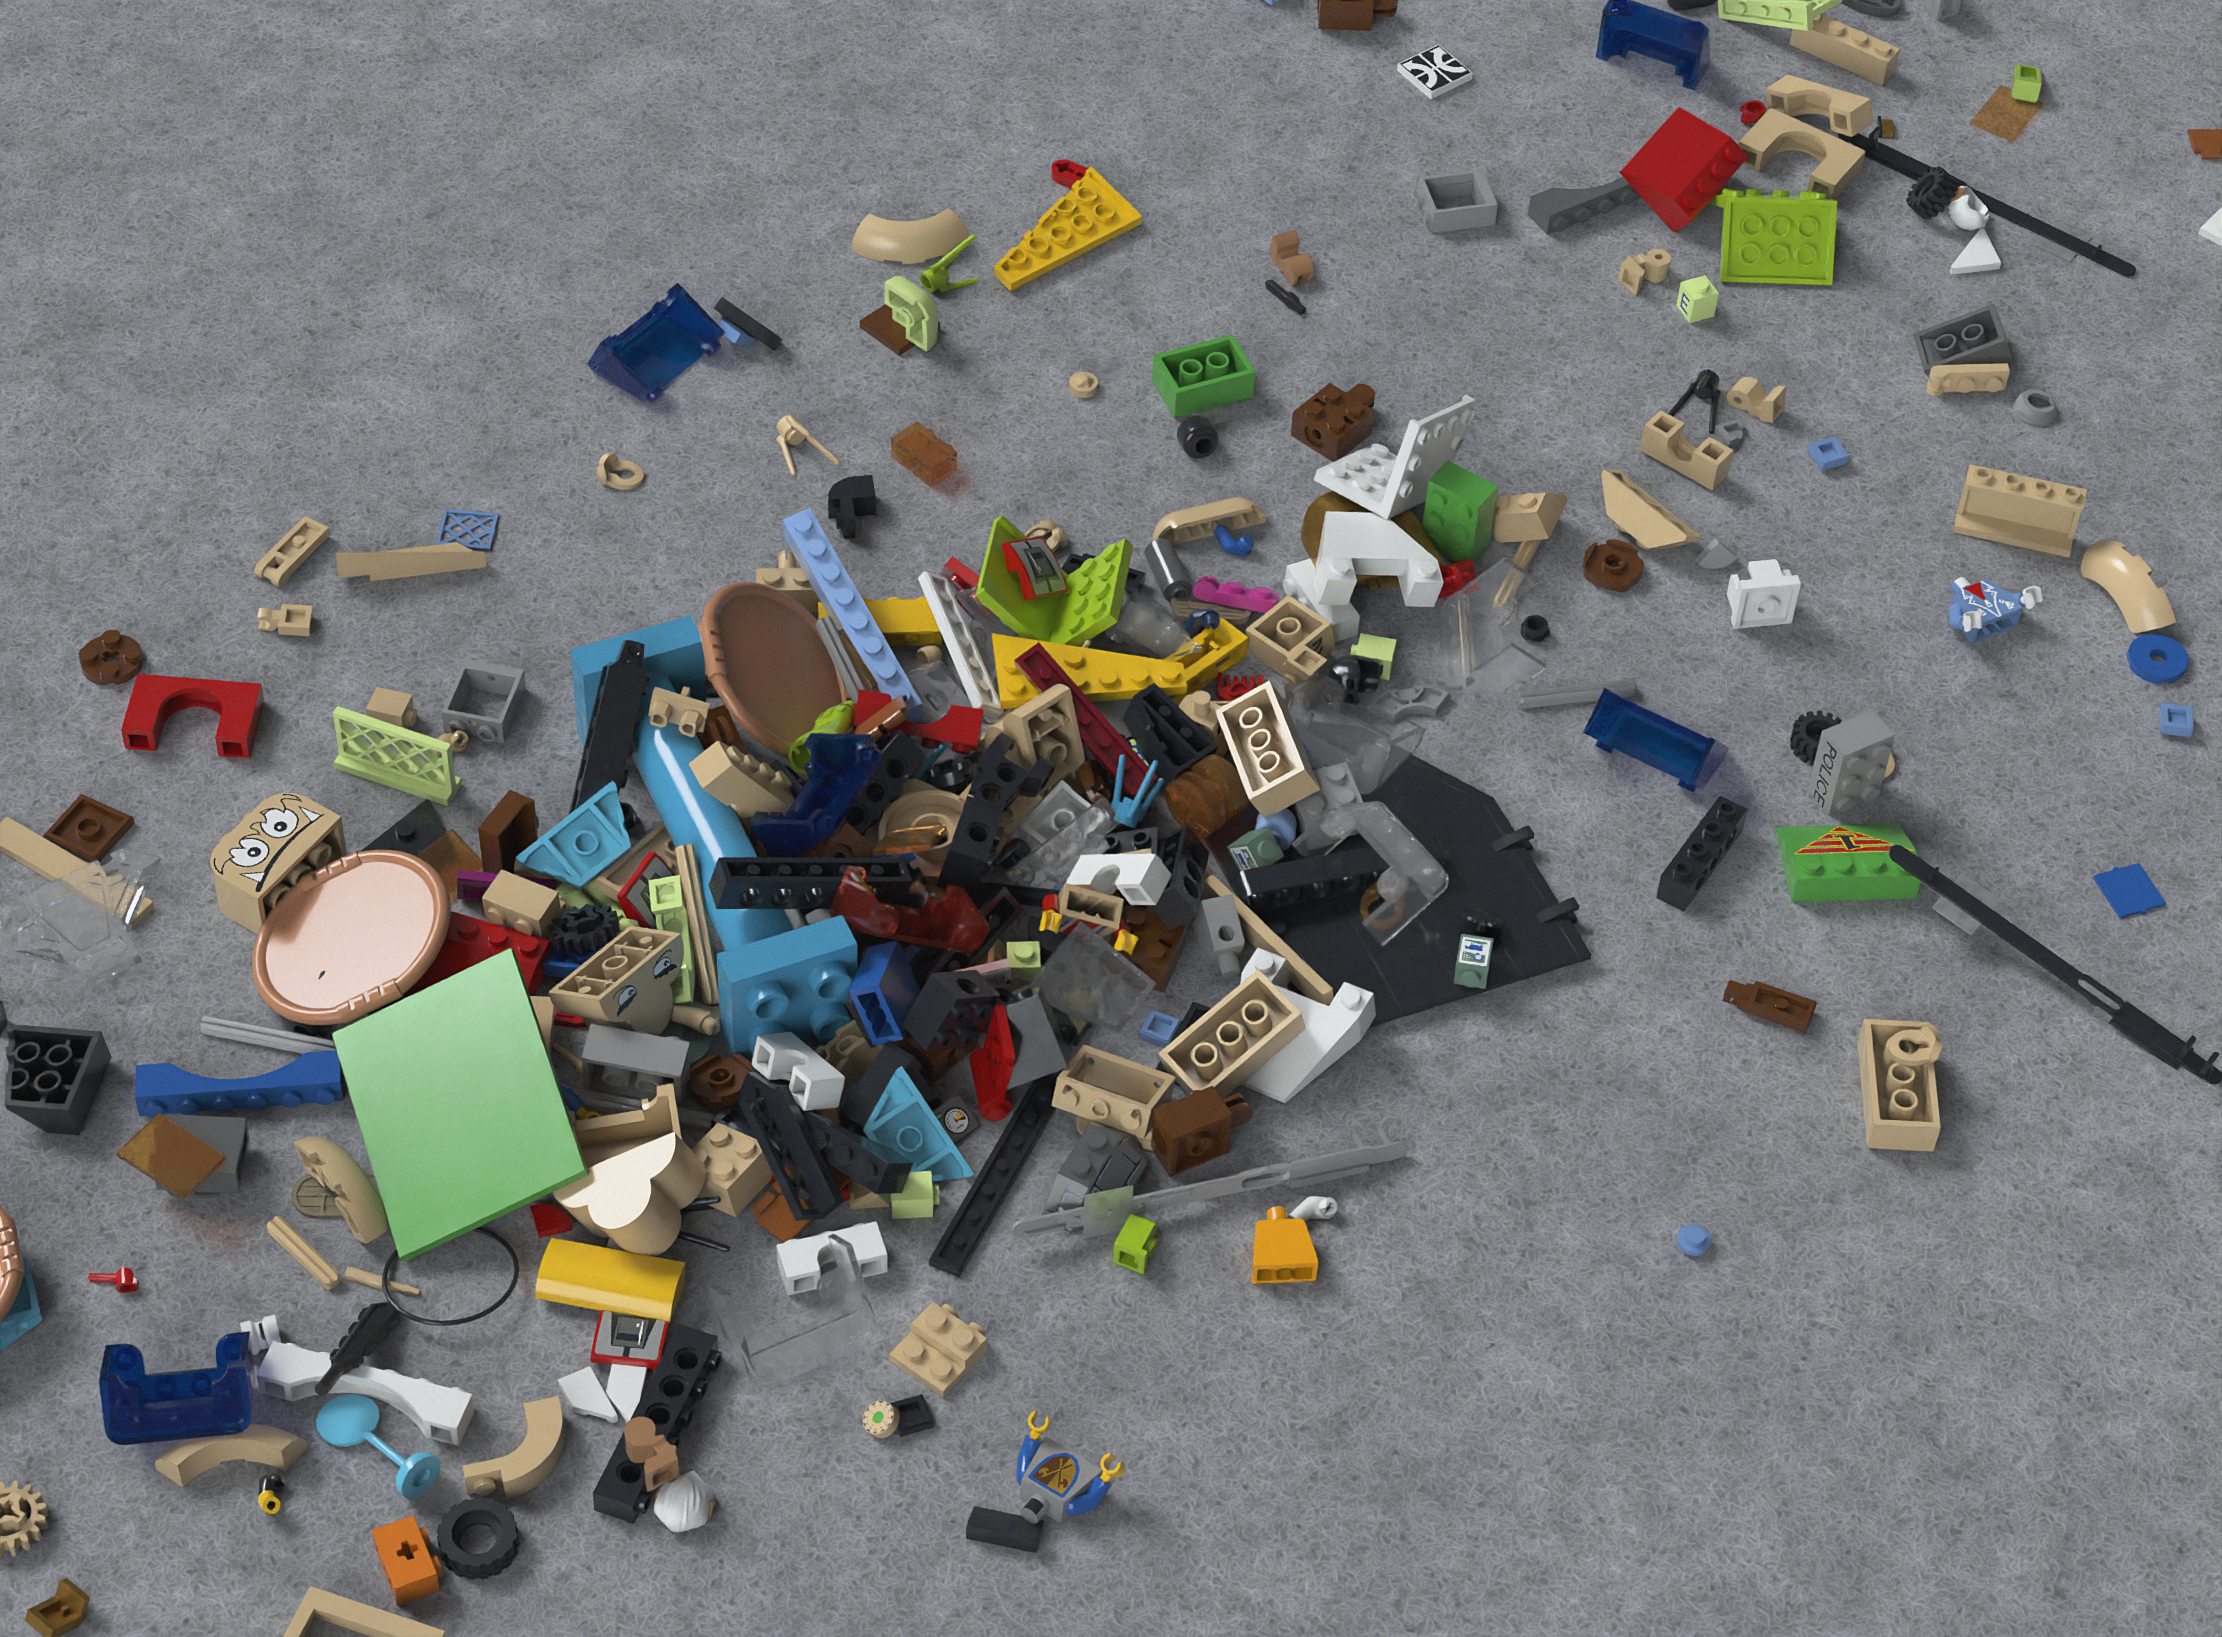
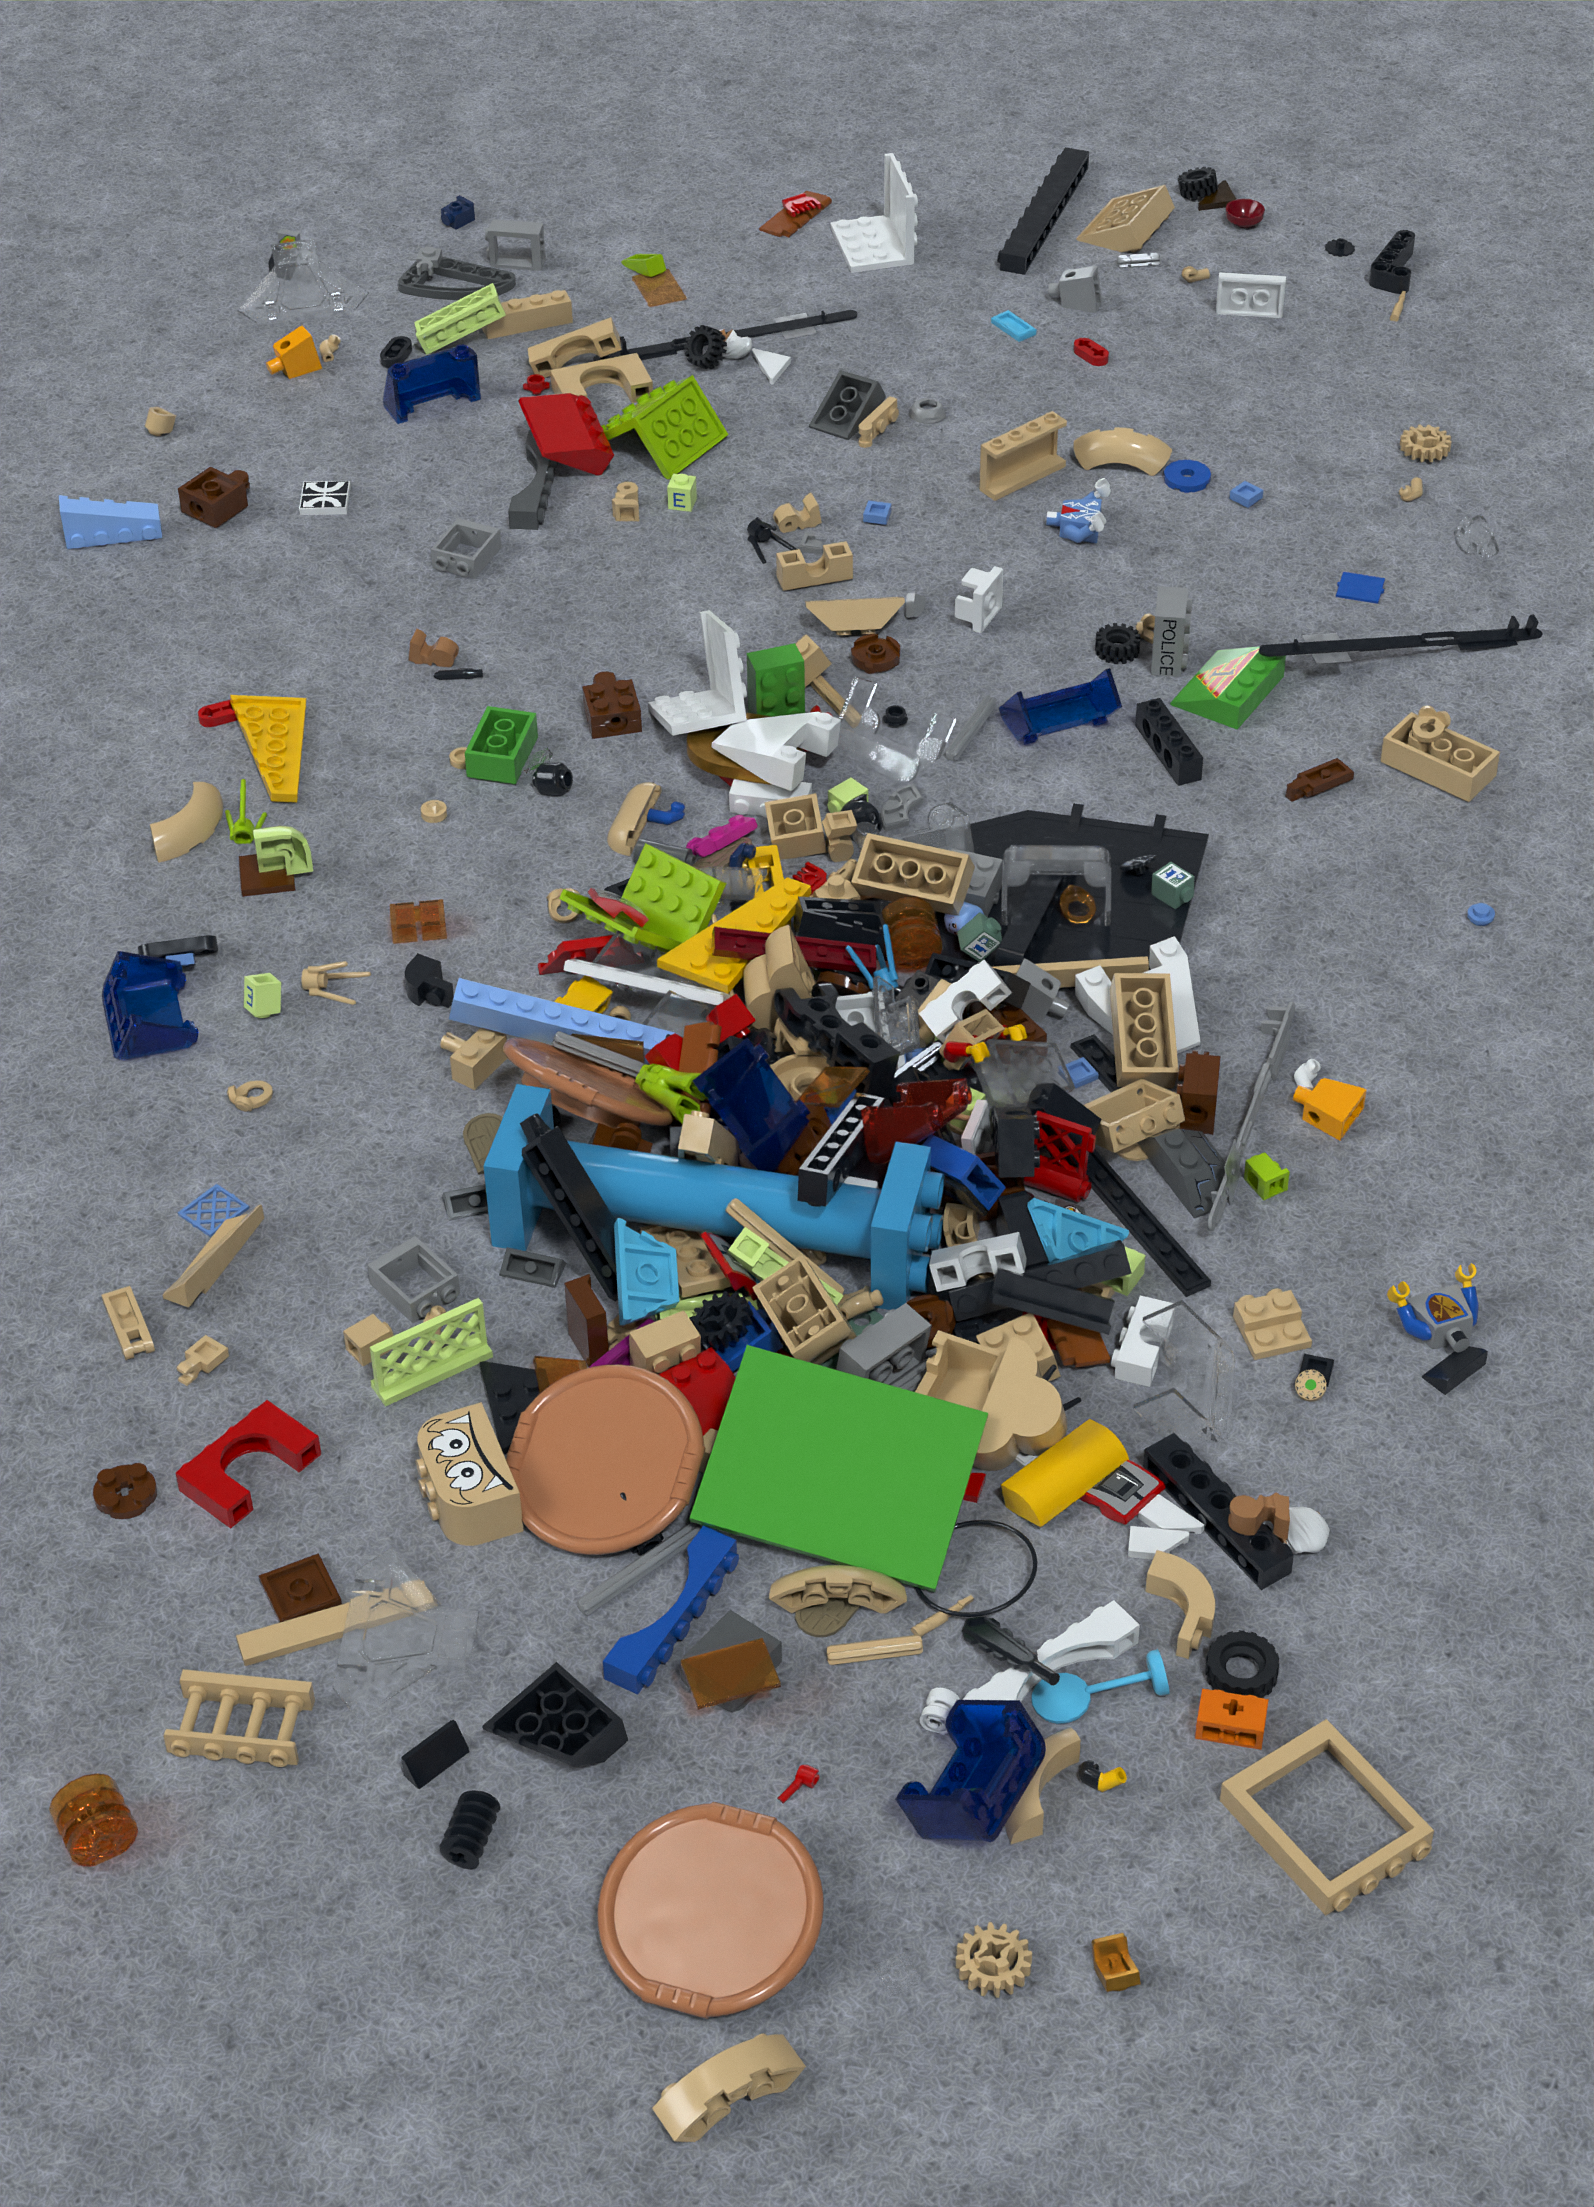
camera: 50 degrees left, 5 degrees down
(564, 767) = (532, 1267): none -> dark grey slope
(678, 709) = (599, 1138): tan hips -> none
(733, 407) = (262, 995): none -> yellowish green brick

